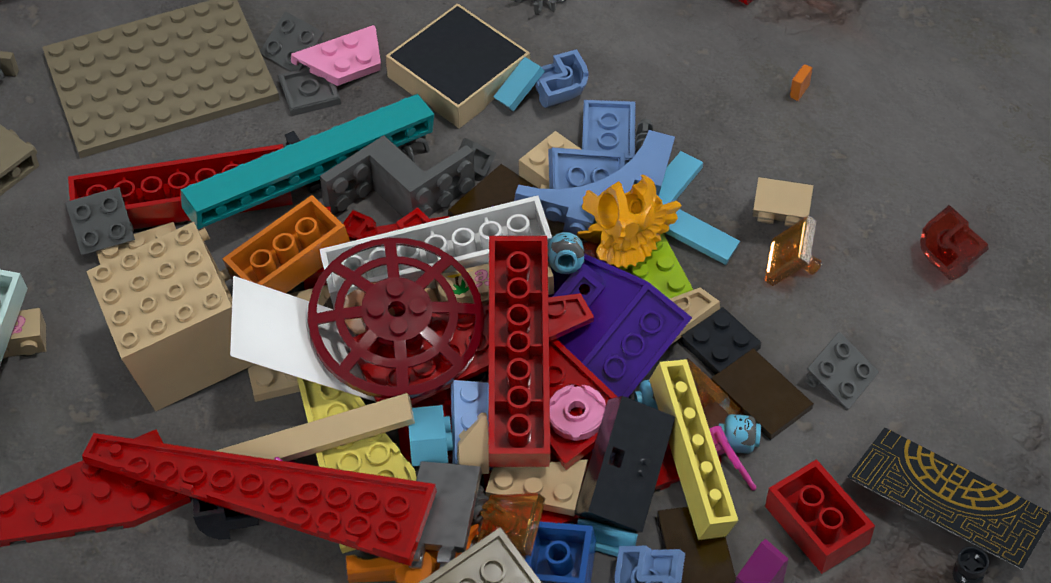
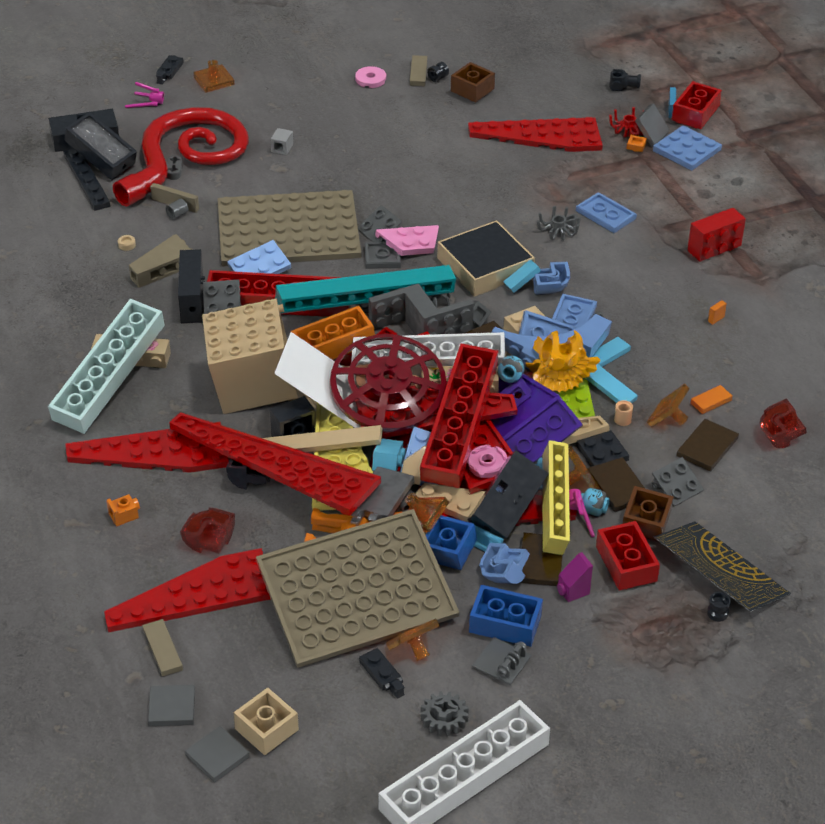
camera: 15 degrees right, 10 degrees down
(46, 208) = (190, 286): none -> black brick
(137, 142) = (263, 259): none -> light blue plate
(268, 406) = (293, 418): none -> black brick
(731, 275) = (623, 413): none -> light nougat beam
(782, 201) = (672, 373): tan brick -> none
(824, 434) = (649, 510): none -> reddish brown brick
(839, 222) = (711, 399): none -> orange tile
(859, 298) = (707, 444): none -> dark brown tile

